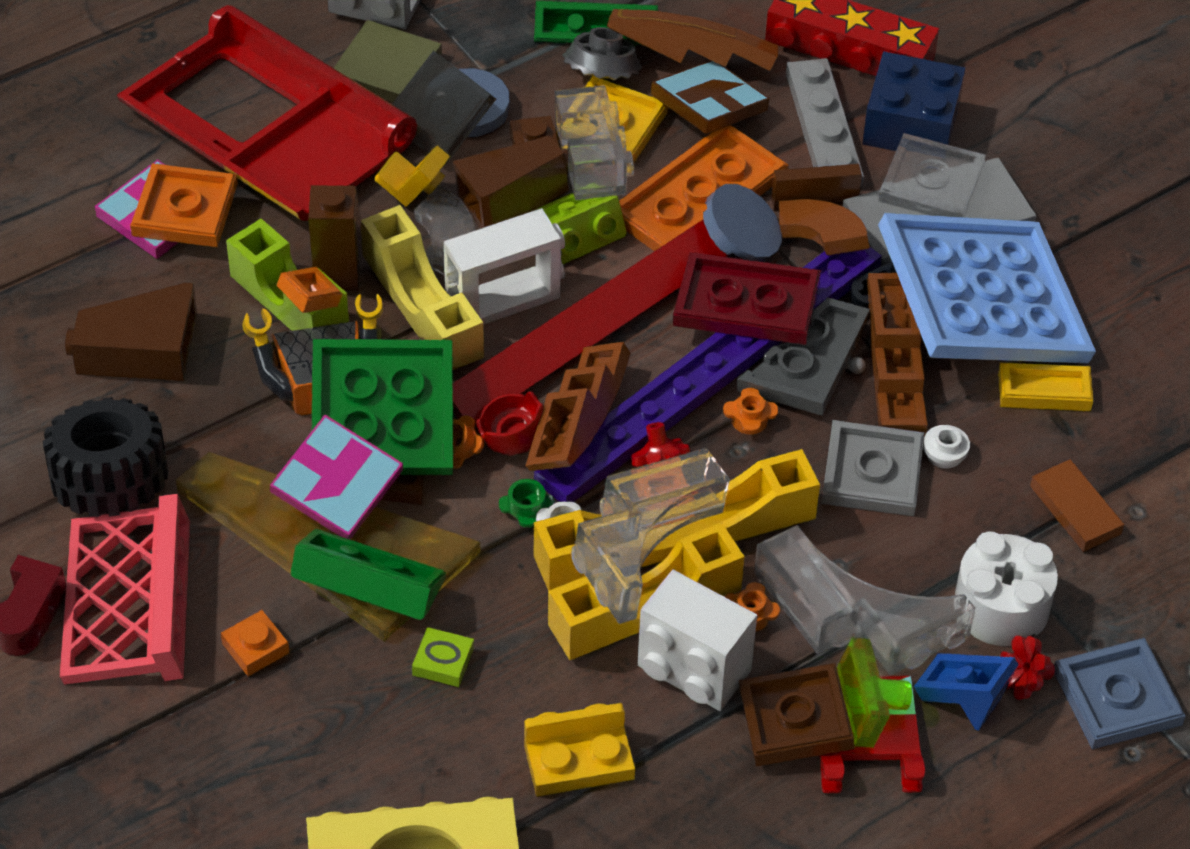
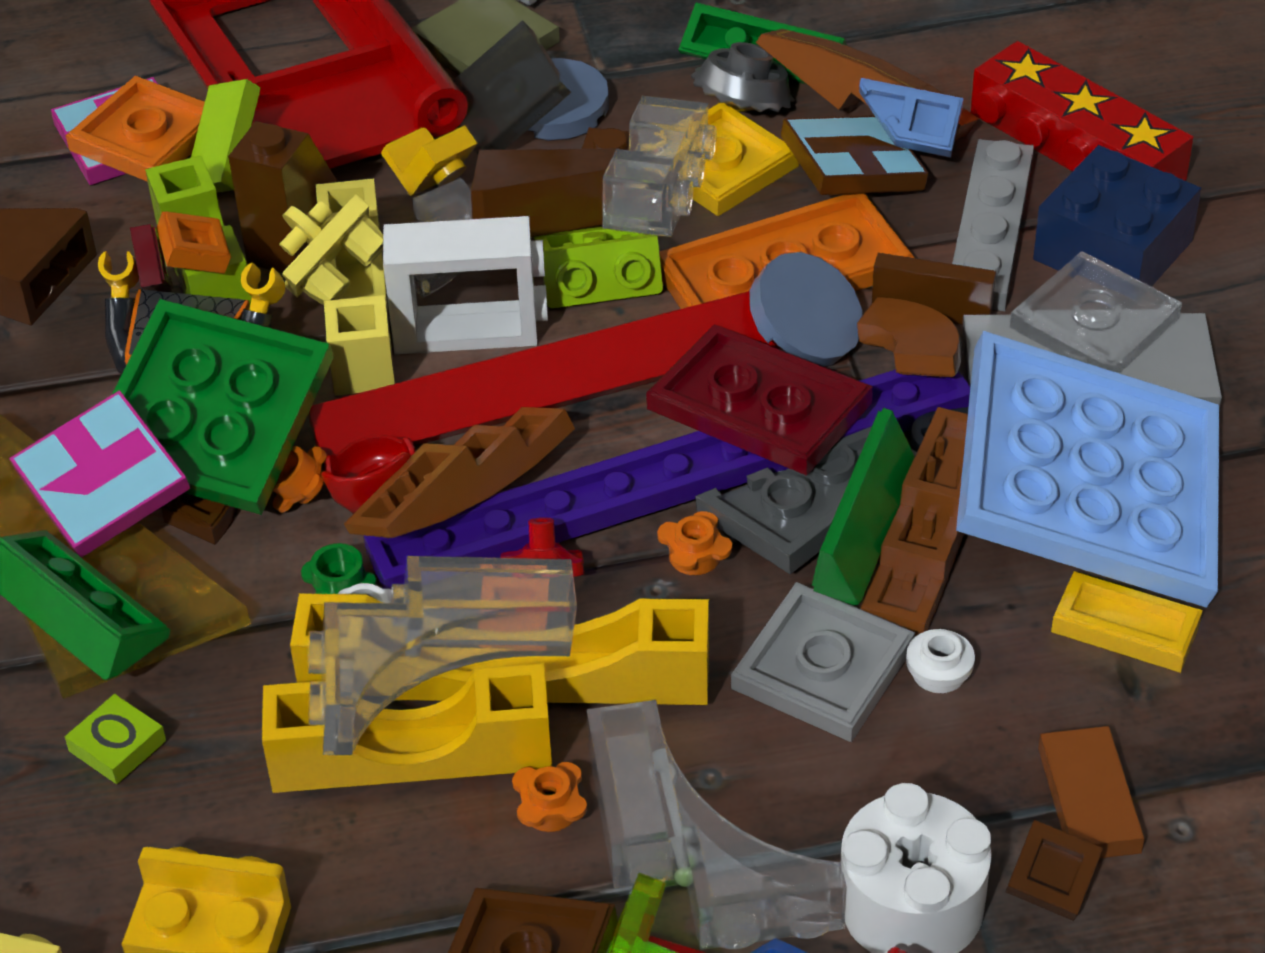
camera: 25 degrees right, 5 degrees down
(252, 190) = (223, 123): none -> lime tile
(272, 300) = (150, 259): none -> dark red tile
(410, 252) = (312, 267): none -> light yellow hips
(696, 640) = (428, 812): white brick -> none
(744, 58) = (914, 116): none -> medium blue tile
(858, 360) = (864, 513): none -> green slope
(1082, 560) = (1054, 870): none -> reddish brown plate

